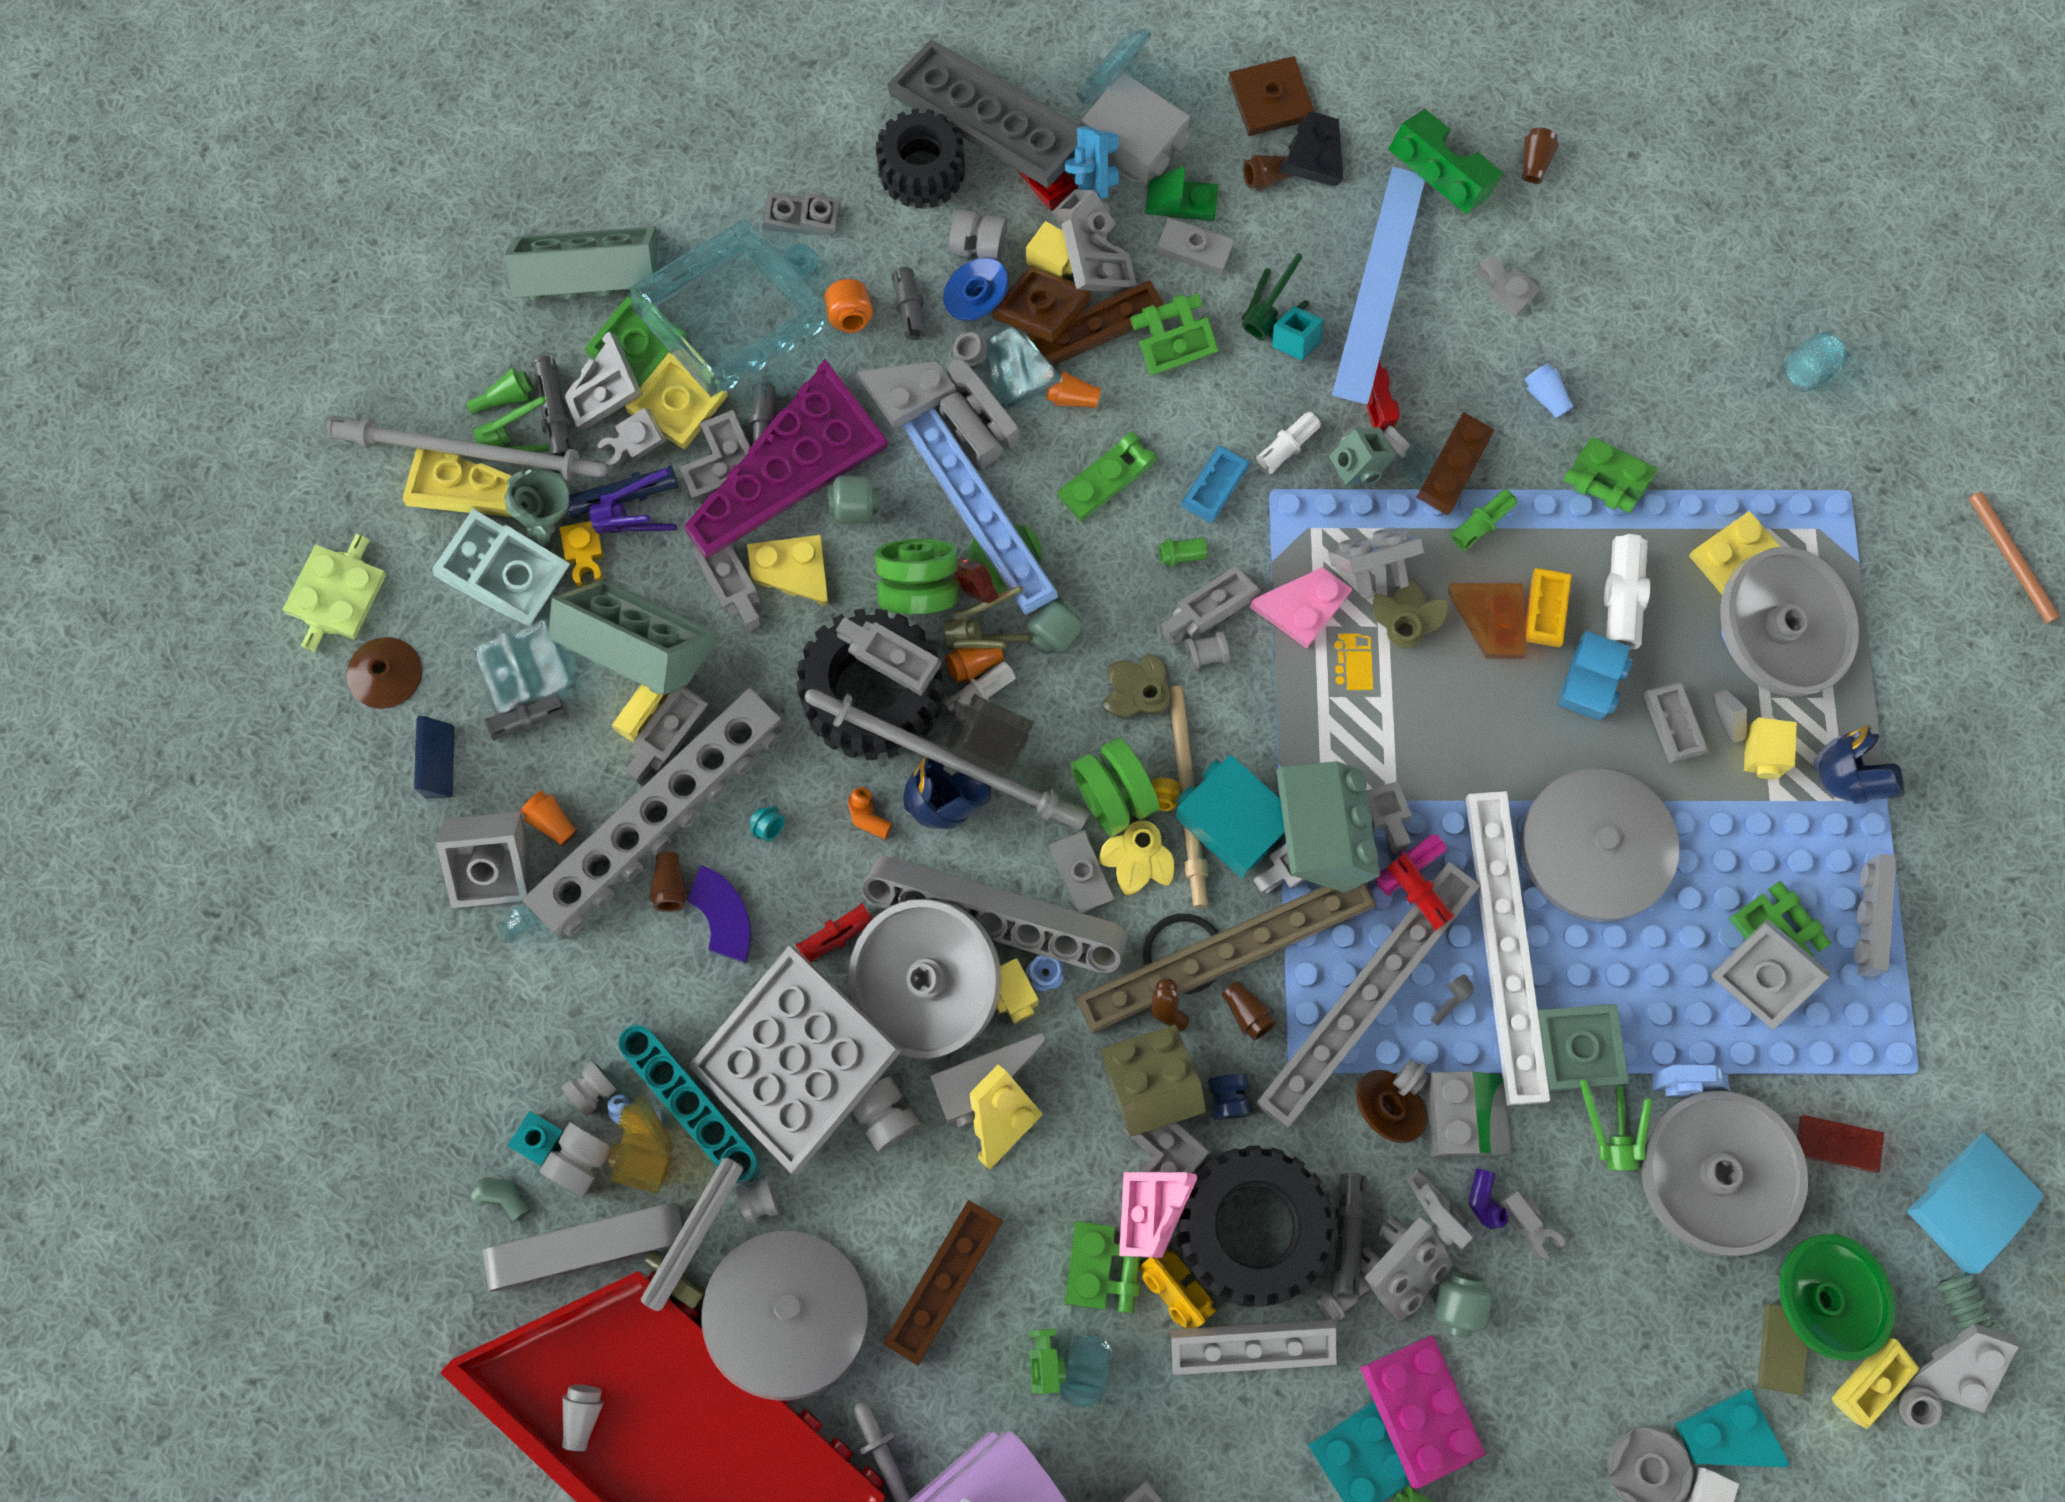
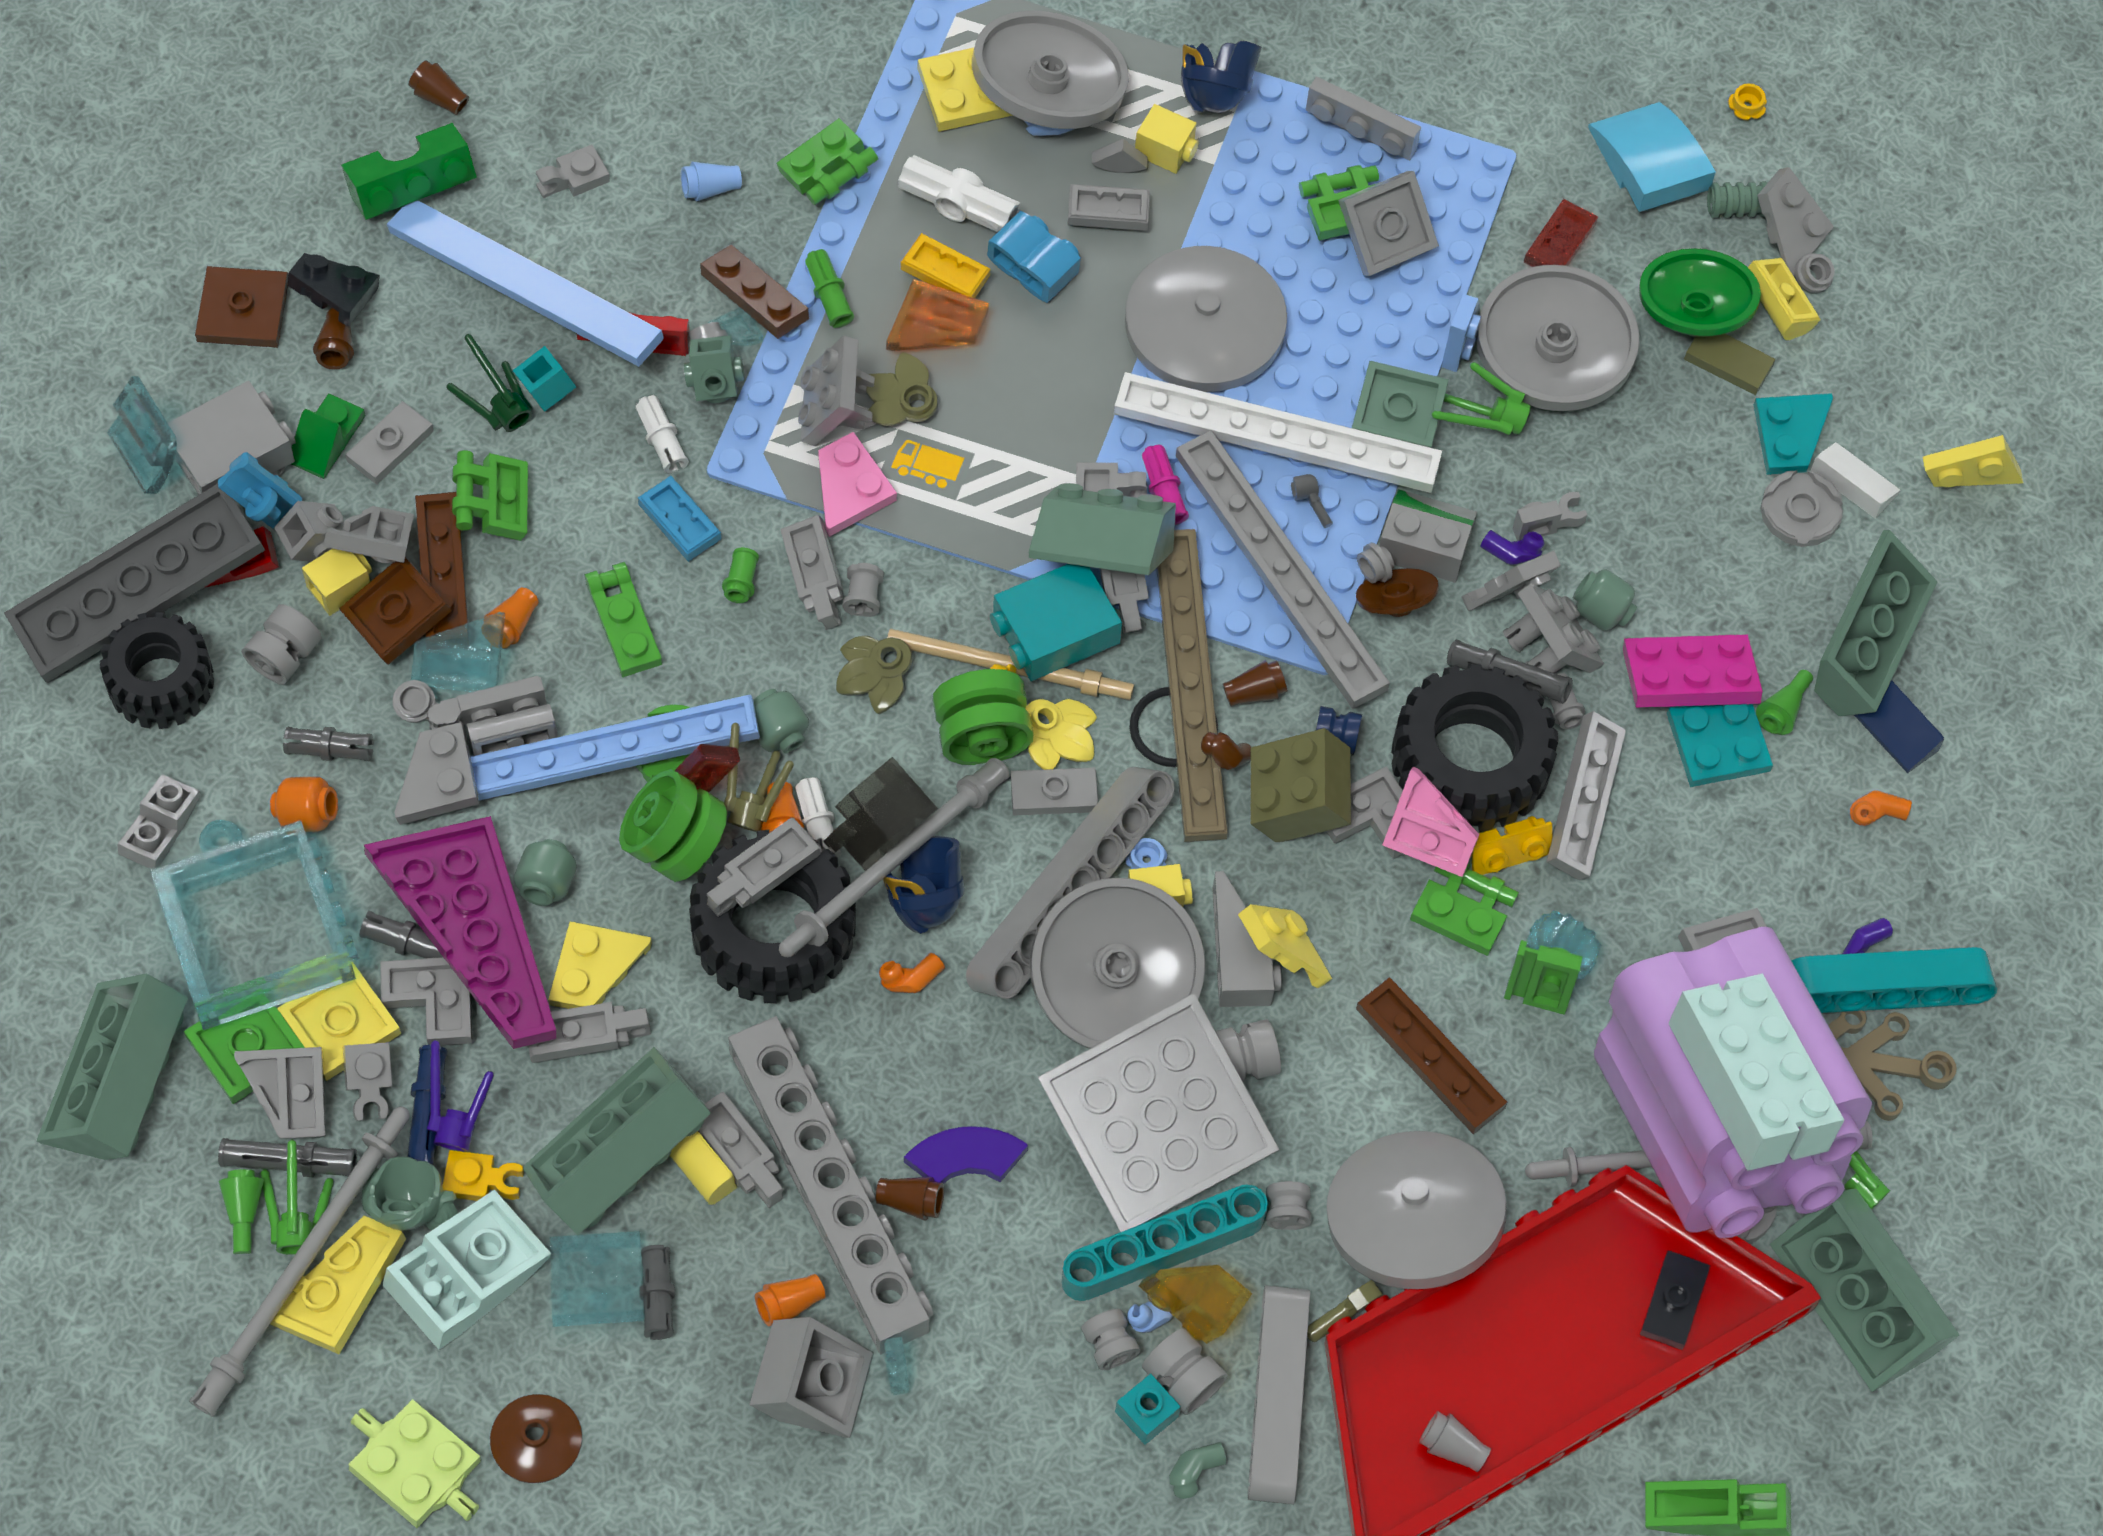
camera: 75 degrees left, 10 degrees down
(434, 758) = (667, 1406): dark blue slope -> none
(691, 1234) = (1308, 1264): light grey axle -> none
(767, 823) = (881, 1077): teal plate -> none
(835, 933) = (1029, 1043): red pin -> none
(975, 289) = (329, 664): blue dish -> none
(1420, 891) = (1201, 479): red pin -> none

